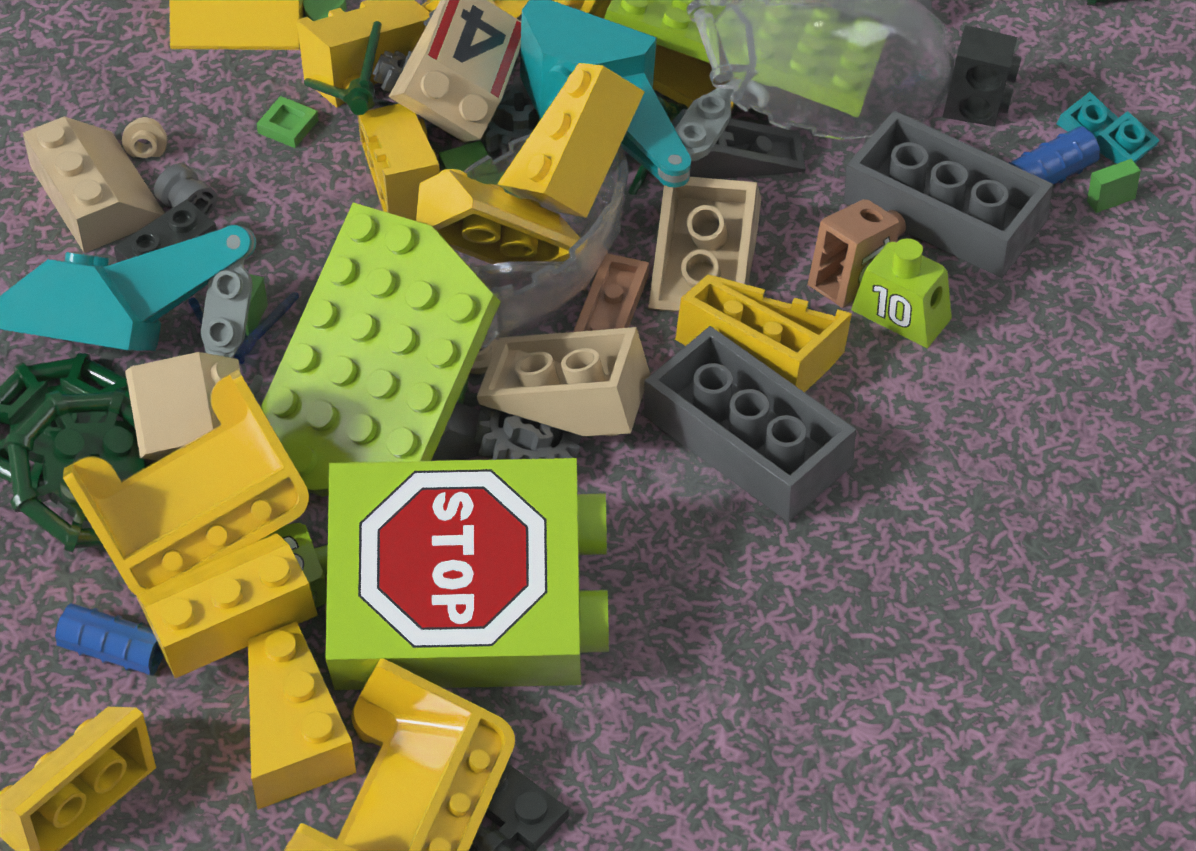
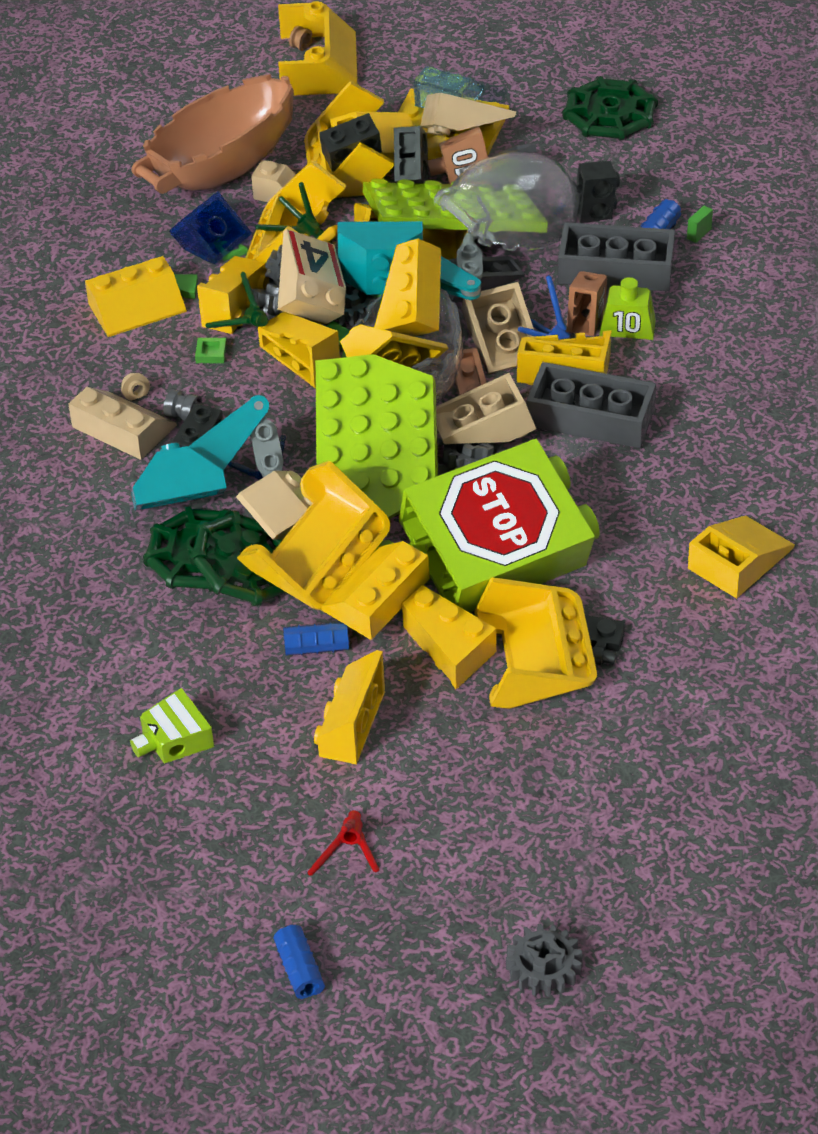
camera: 25 degrees left, 5 degrees down
(782, 284) = (559, 329): none -> blue plant
(813, 765) = (736, 553): none -> yellow slope
(1117, 137) = (687, 198): teal slope -> none

